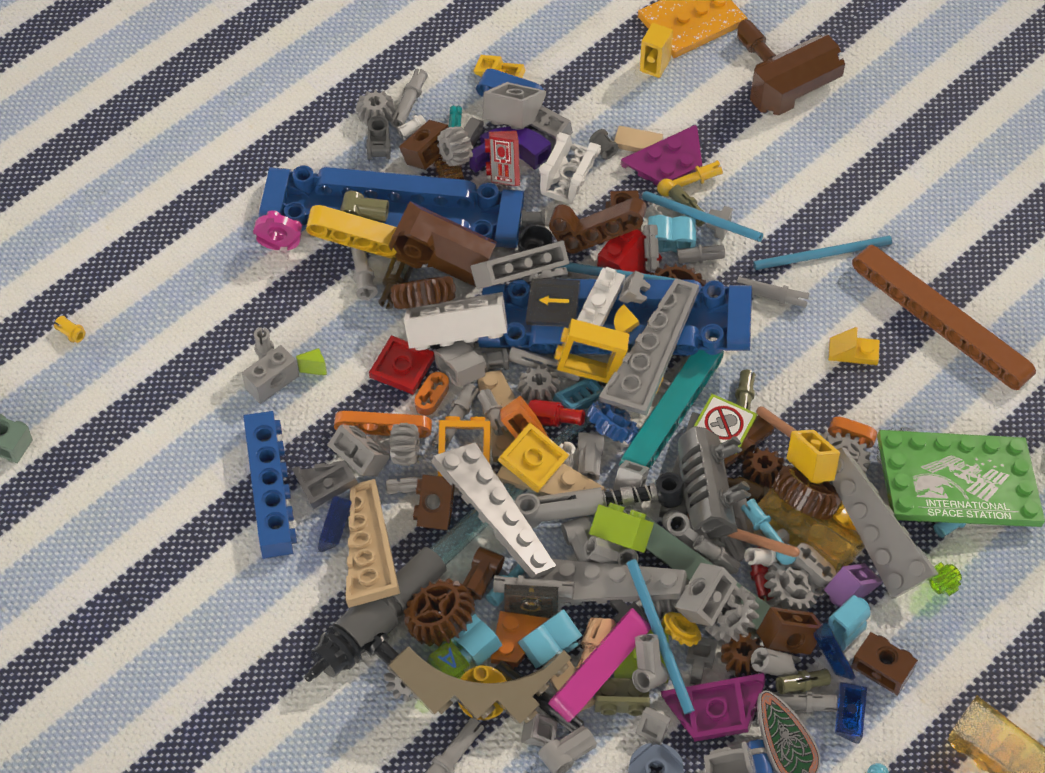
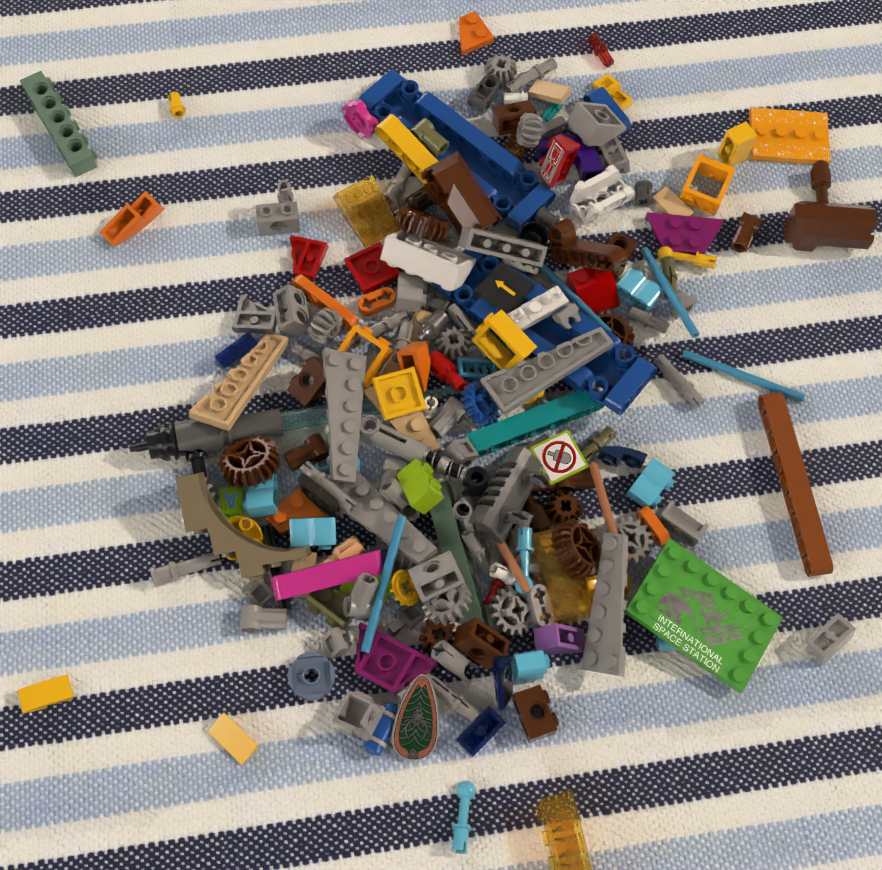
camera: 30 degrees right, 10 degrees up
(117, 465) = (131, 219): none -> orange slope
(272, 541) = (237, 251): blue brick -> none
(311, 362) = (312, 227): lime slope -> none
(318, 90) = (473, 33): none -> orange wing
(327, 392) = (307, 256): none -> red wing
(352, 315) = (366, 211): none -> clear yellow slope
(440, 101) = (549, 91): none -> tan tile
(456, 36) = (600, 50): none -> clear red axle
(508, 380) = (432, 325): none -> piece
(625, 320) = (542, 335): yellow tile -> none
(651, 247) = (612, 292): light grey axle -> none
(652, 86) = (713, 170): none -> light orange window
(723, 120) = (746, 231): none -> reddish brown piece
(769, 391) = (613, 454): none -> dark blue slope
(813, 456) = (598, 526): yellow brick -> none
(816, 679) = (451, 680): olive pin -> none
(821, 396) = (651, 483): none -> medium azure brick
(850, 349) = (704, 462): yellow slope -> none
(878, 415) = (682, 524): none -> light grey hinge
(947, 579) = (631, 683): clear neon green gear -> none

